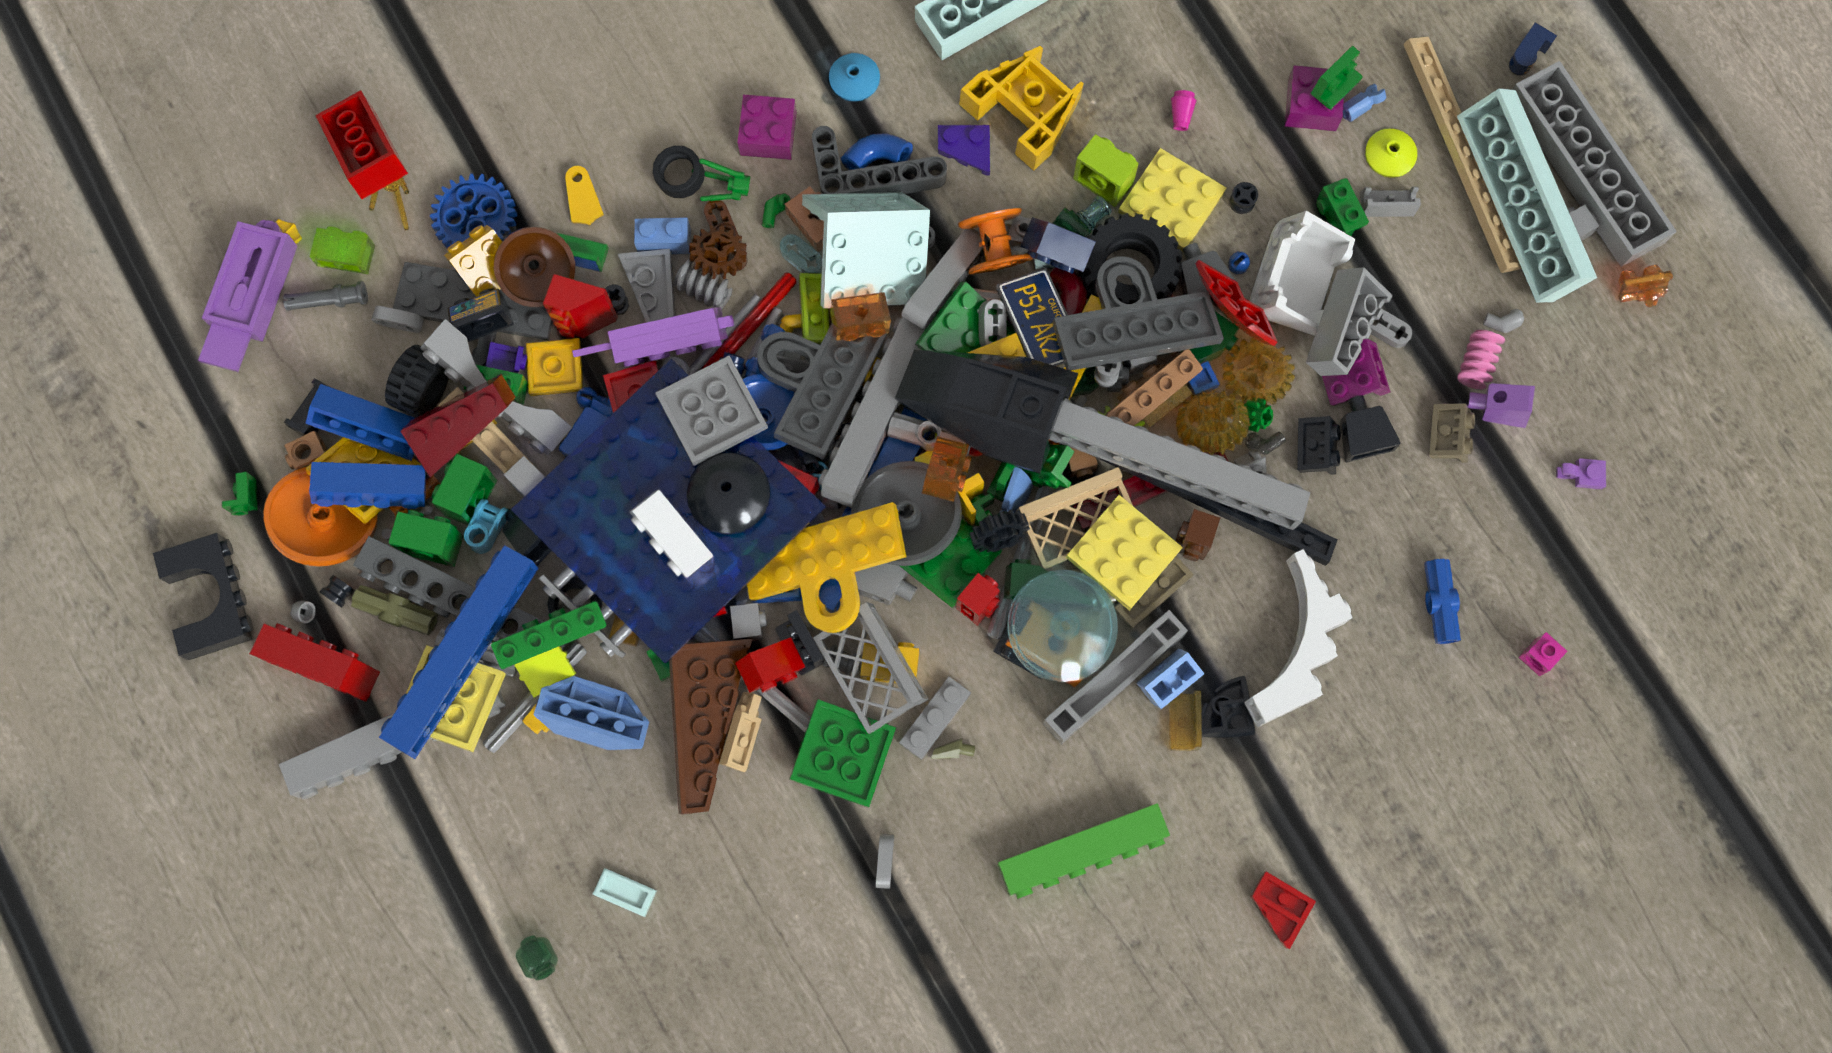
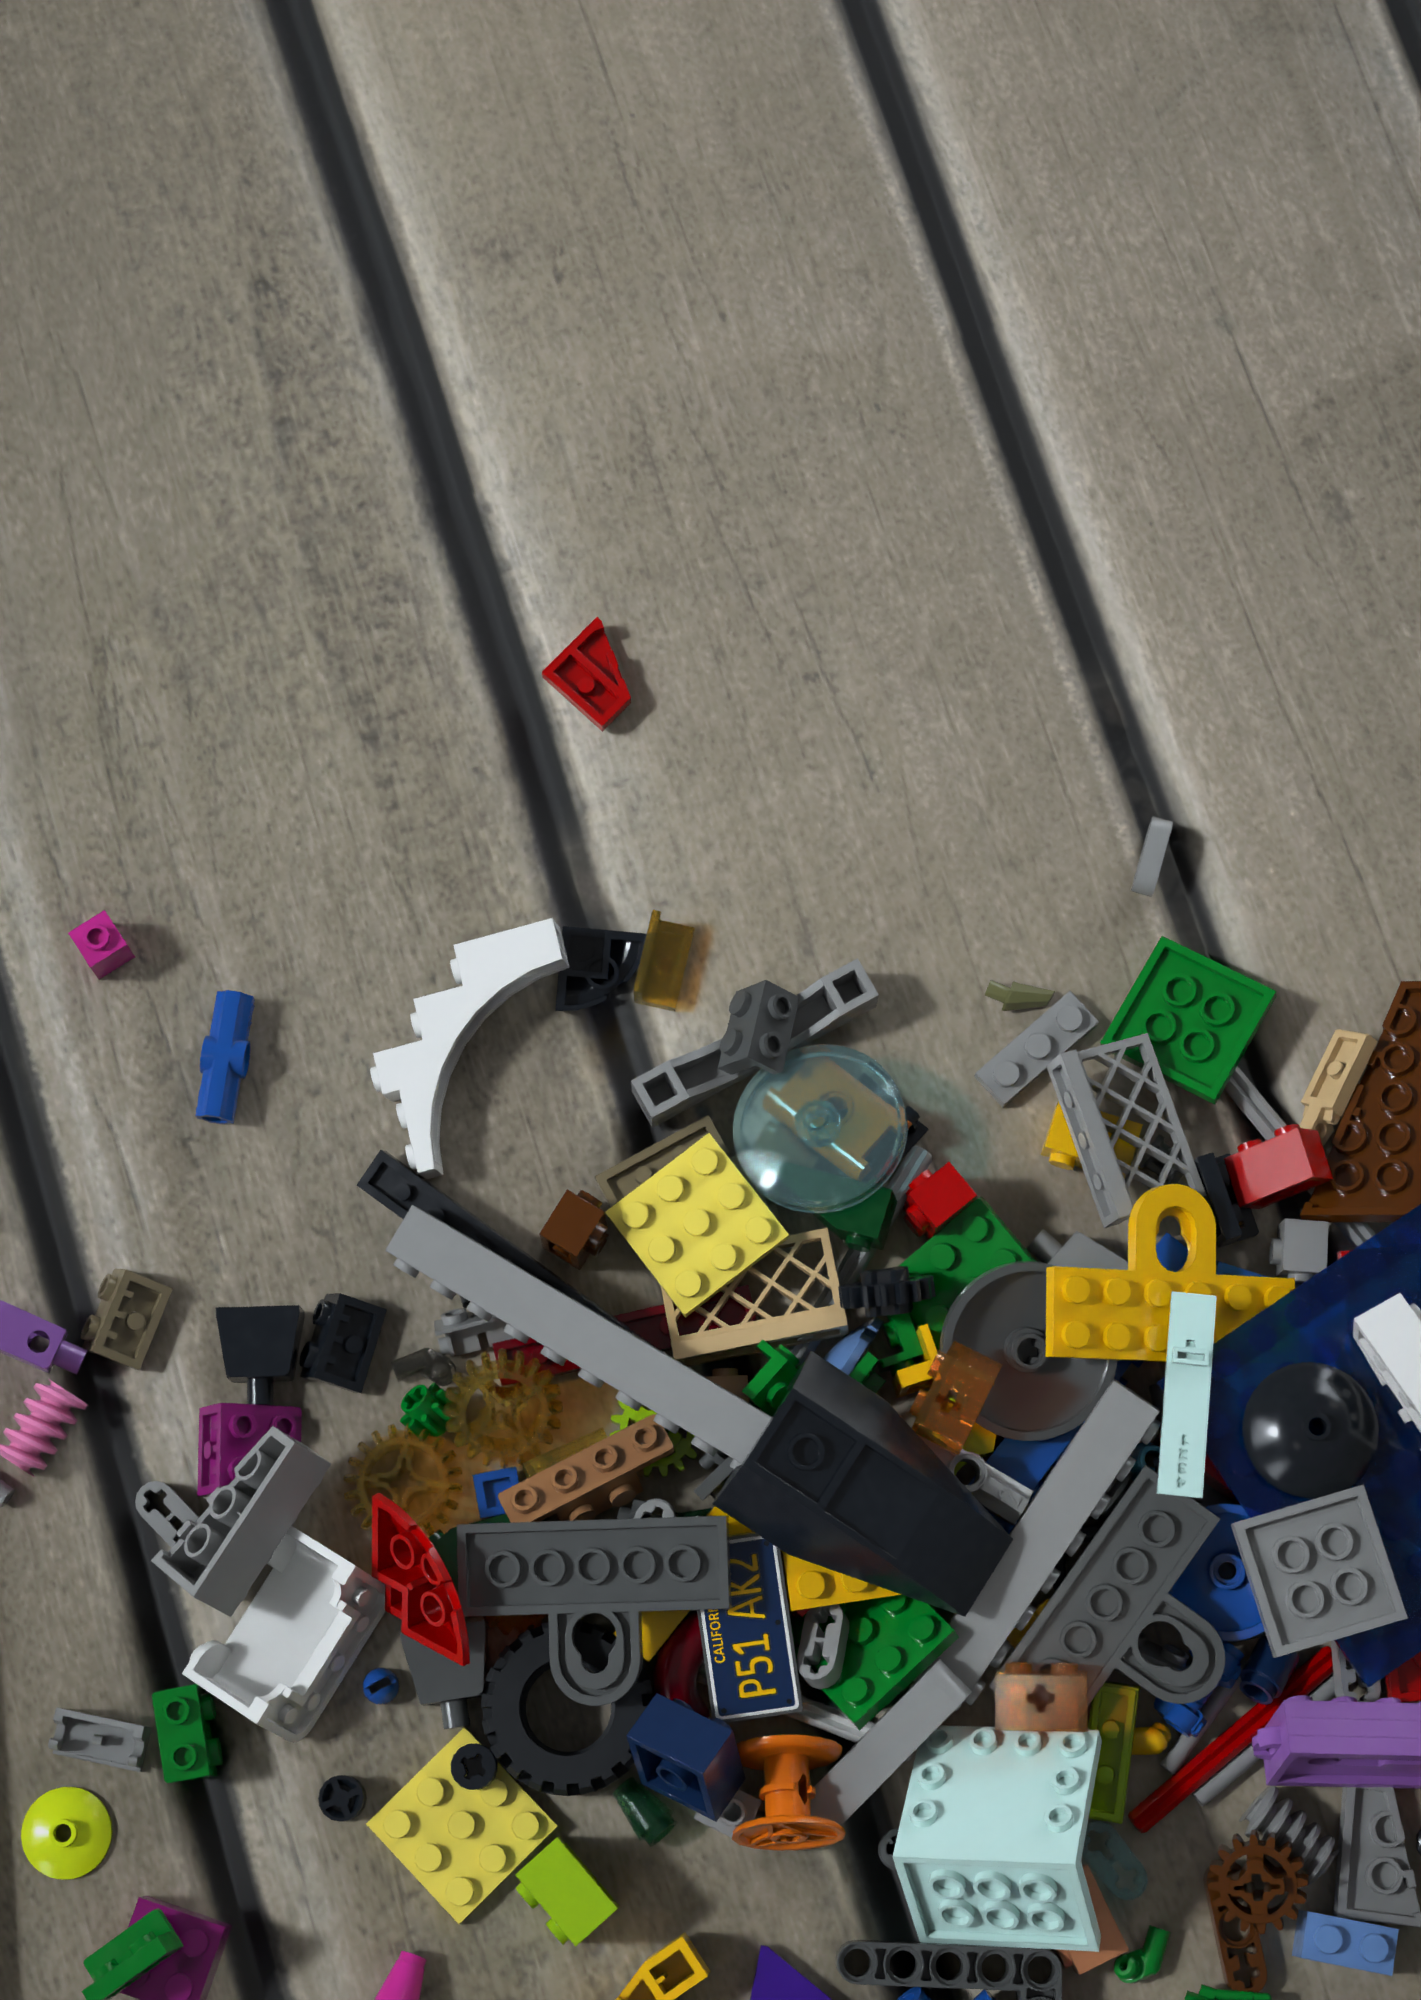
camera: 170 degrees left, 0 degrees up
(806, 499) = (1186, 1395): none -> light aqua piece
(1083, 850) = (858, 809): bright green brick -> none
(1095, 212) = (601, 1826): clear light blue bush -> none
(1115, 682) = (758, 1029): none -> dark grey bracket
(1170, 678) = (672, 1023): light blue brick -> none
(1176, 214) = (480, 1769): none -> black wheel
(1362, 102) = (87, 1933): medium blue bar -> none

